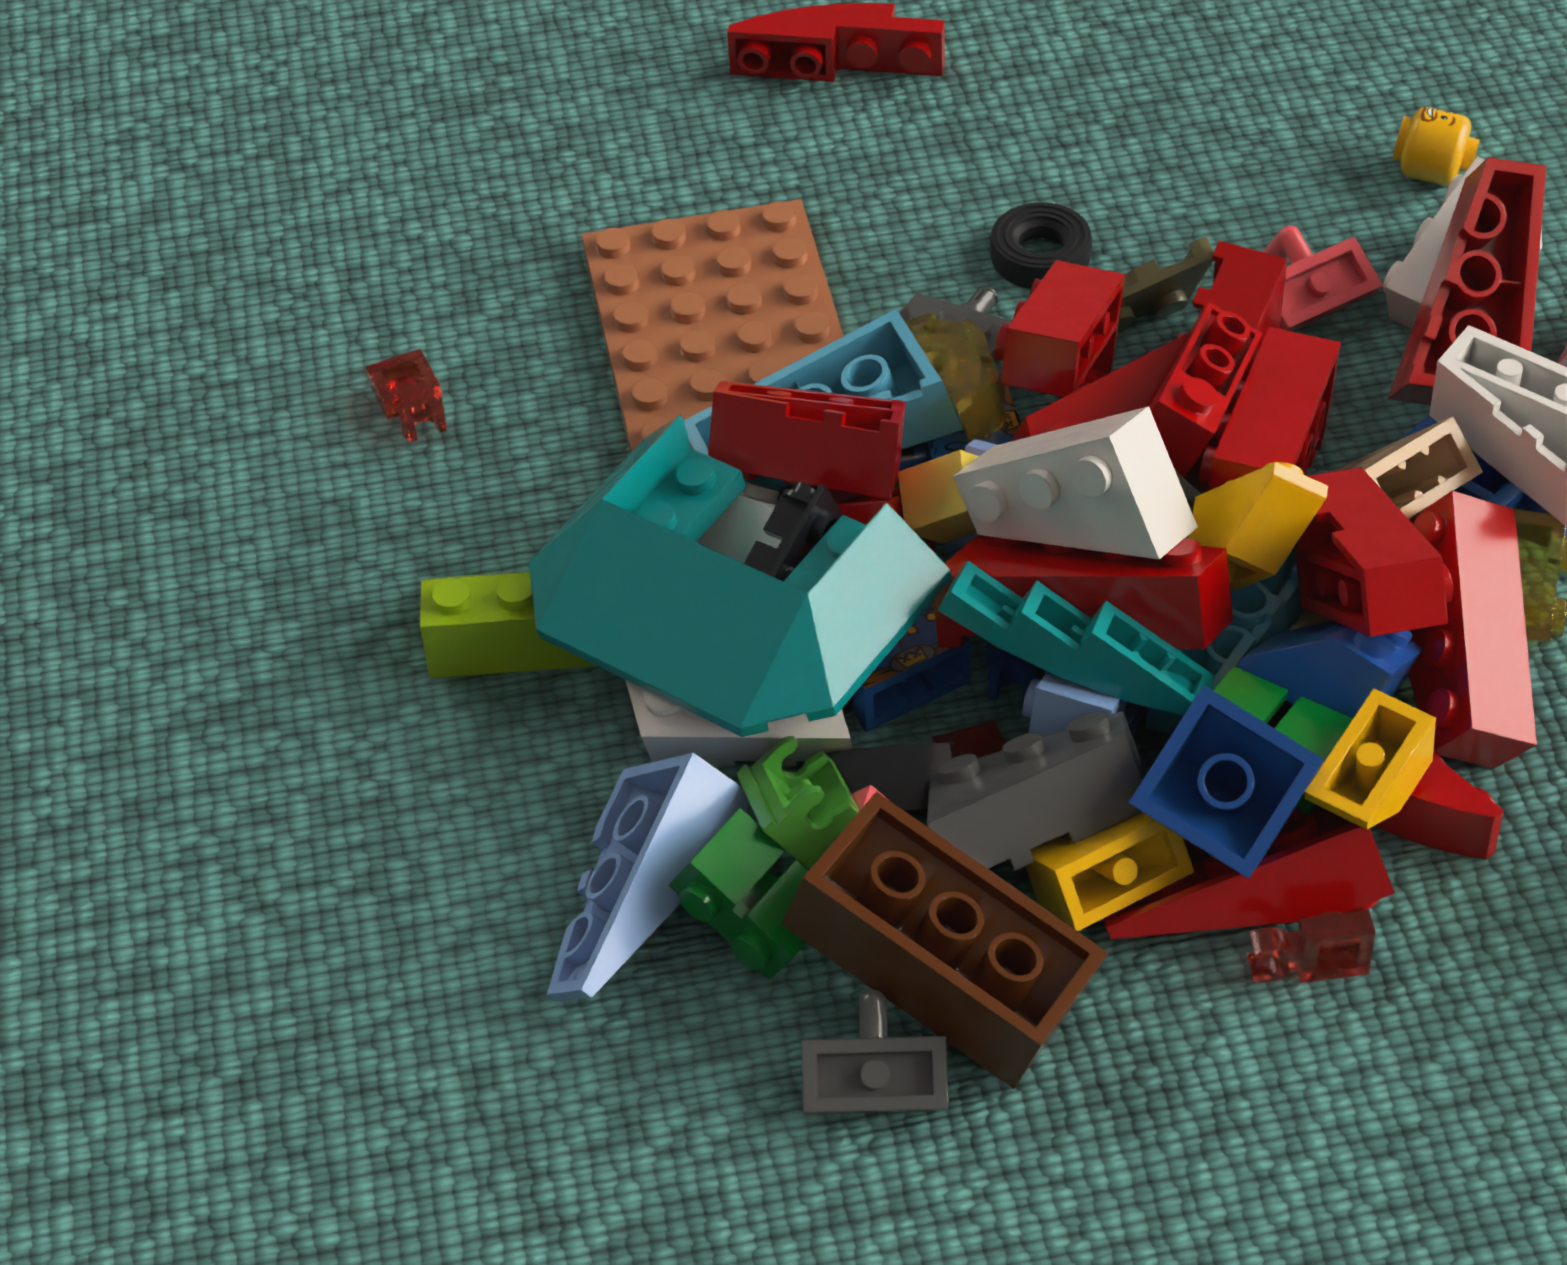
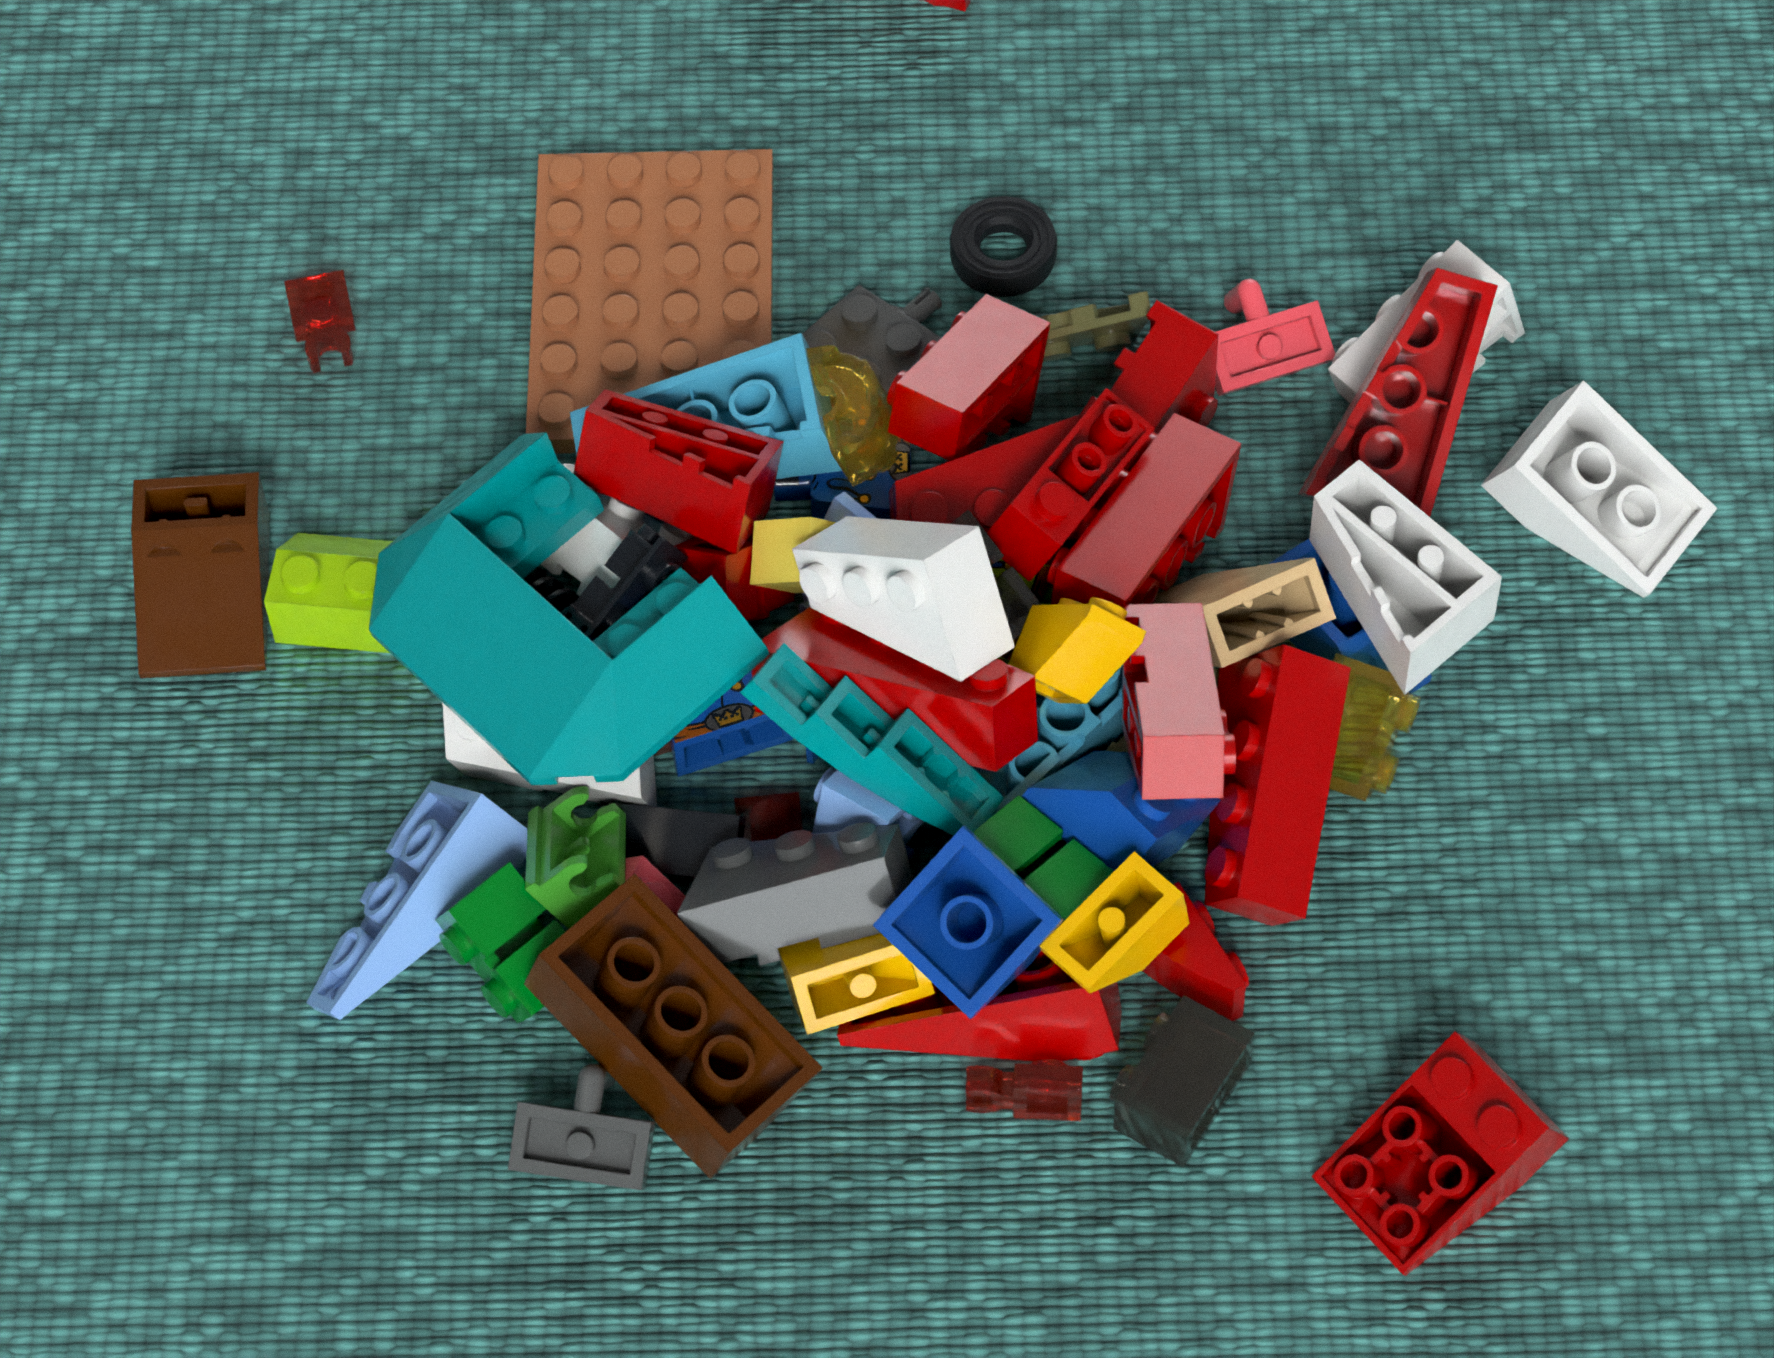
camera: 10 degrees right, 10 degrees up
(345, 621) = (200, 574): none -> reddish brown slope
(1435, 145) = (1443, 197): yellow head -> none
(1463, 913) = (1181, 1080): none -> clear smoke brick

